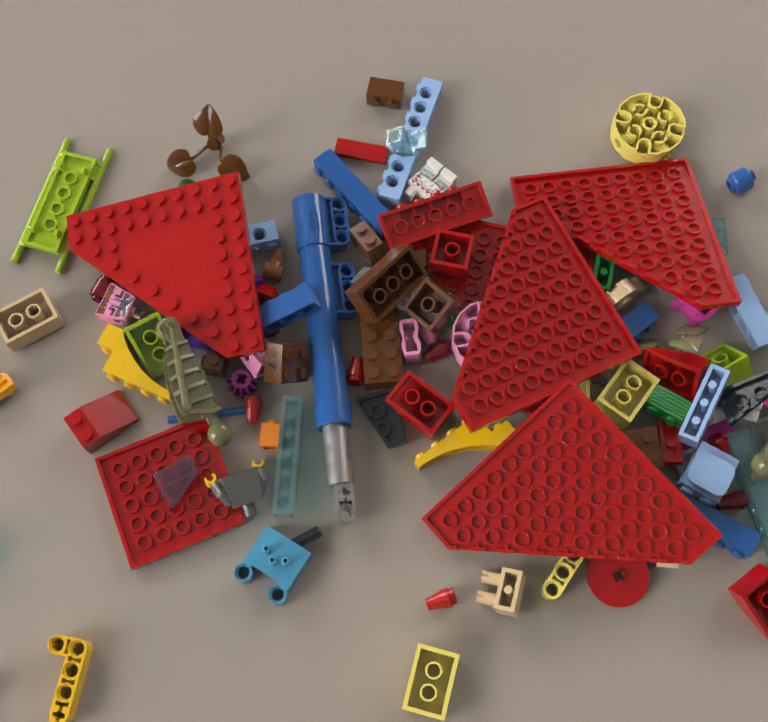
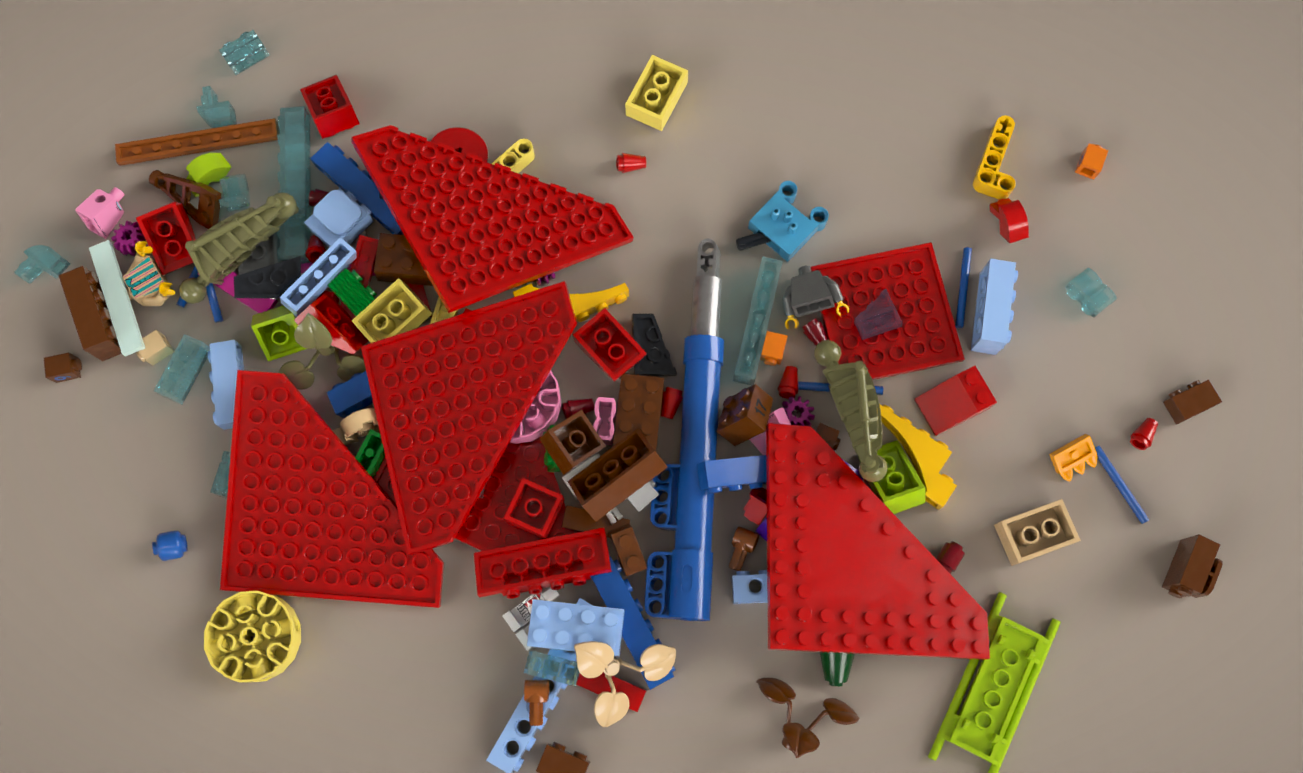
camera: 170 degrees left, 5 degrees up
(51, 609) = (1011, 218): none -> red brick
(67, 509) = (994, 306): none -> light blue brick
(98, 531) = (963, 288): none -> blue bar
(119, 307) = (930, 529): torso -> none
(235, 460) = (814, 331): none -> dark red cone
(374, 144) = (598, 657): none -> tan plant
(396, 172) = (566, 624): none -> light blue brick
(414, 121) = (536, 693): none -> dark orange axle
(509, 591) = (568, 148): tan brick -> none

